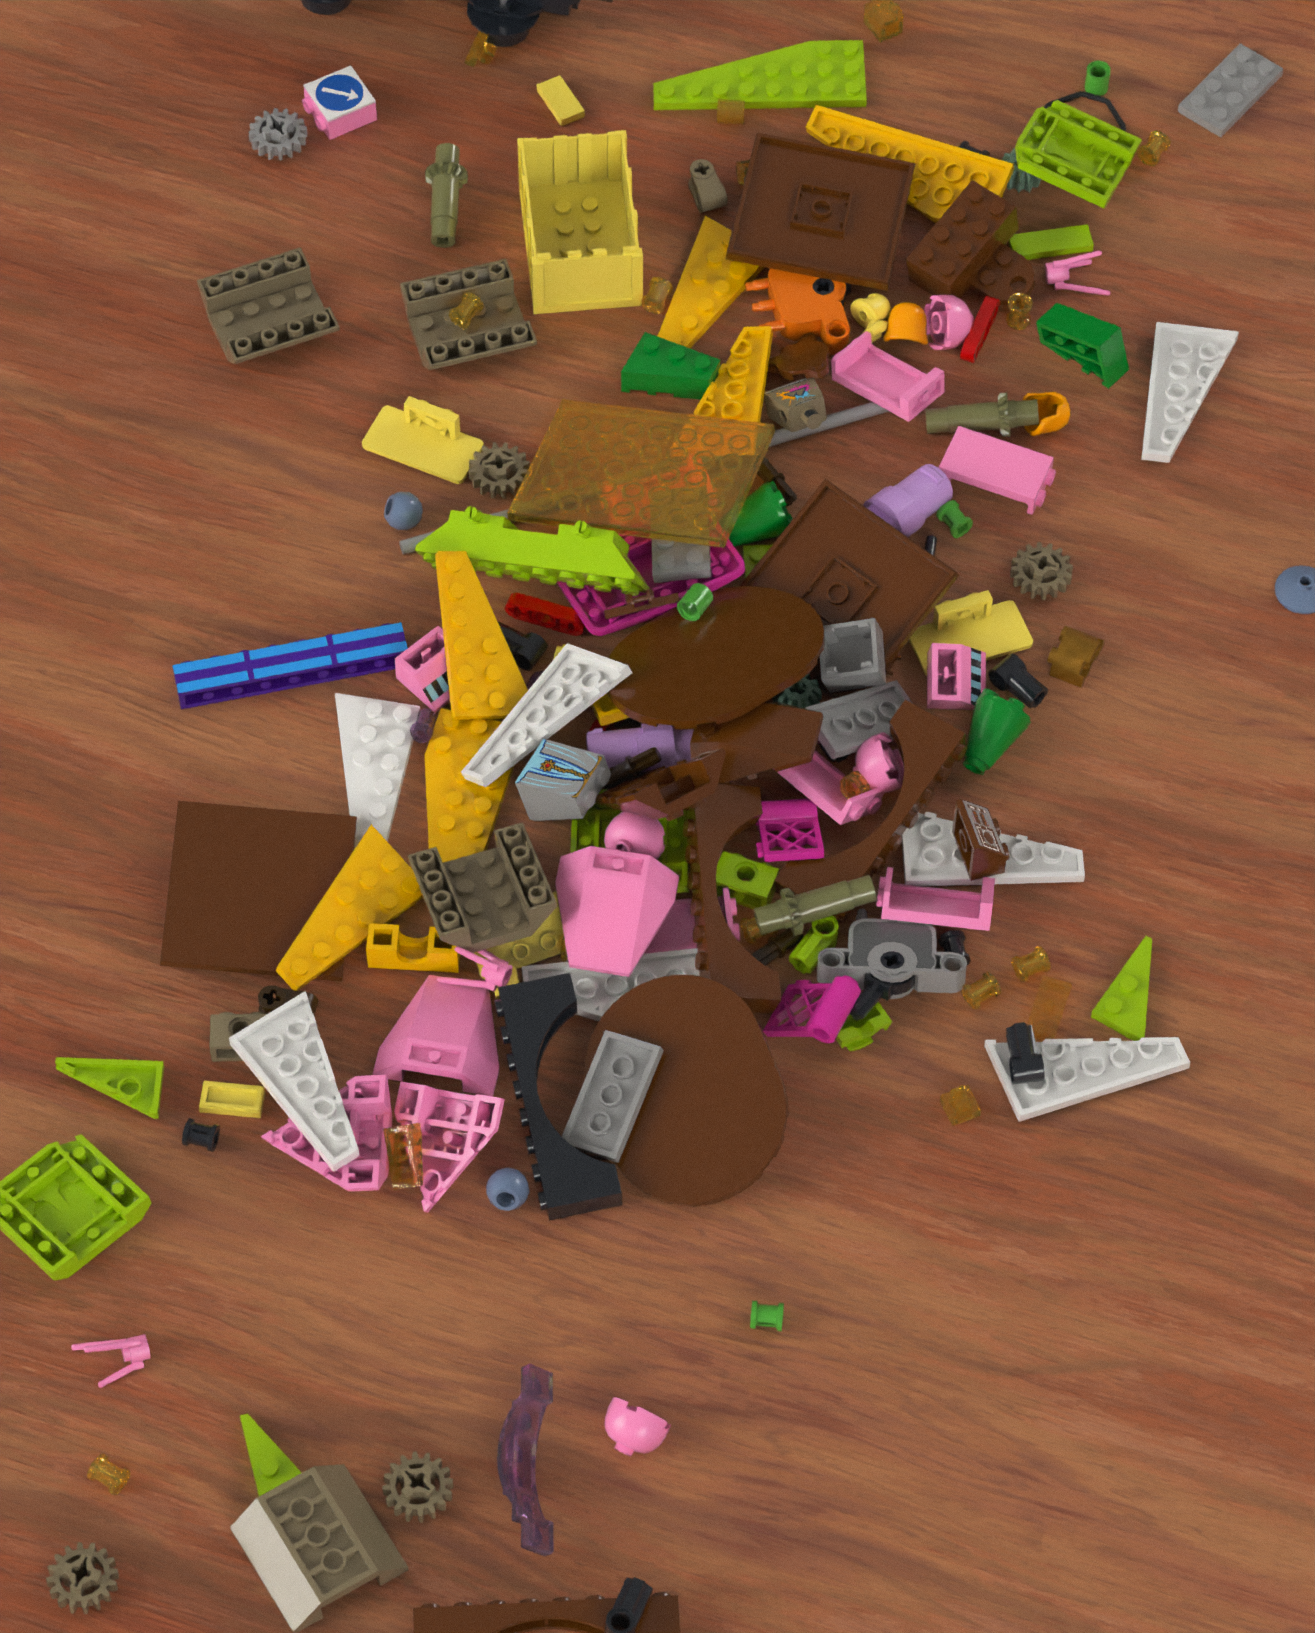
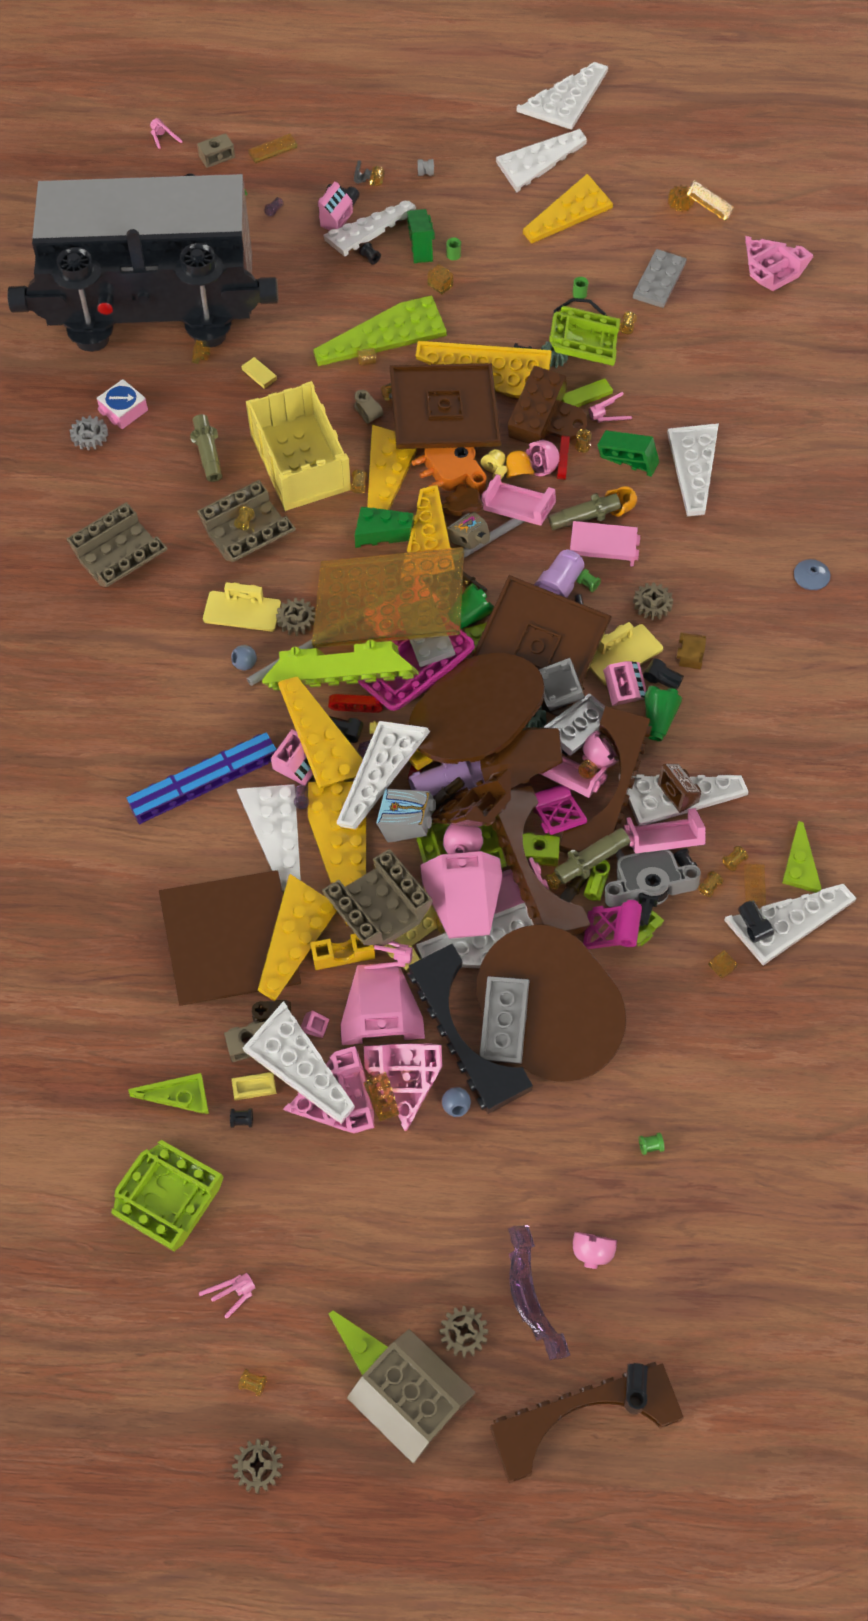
camera: 15 degrees left, 5 degrees up
(343, 1039) = (314, 1024): none -> bright pink slope
(630, 603) = (411, 685): reddish brown piece -> none
(695, 602) = (451, 674): bright green beam -> none

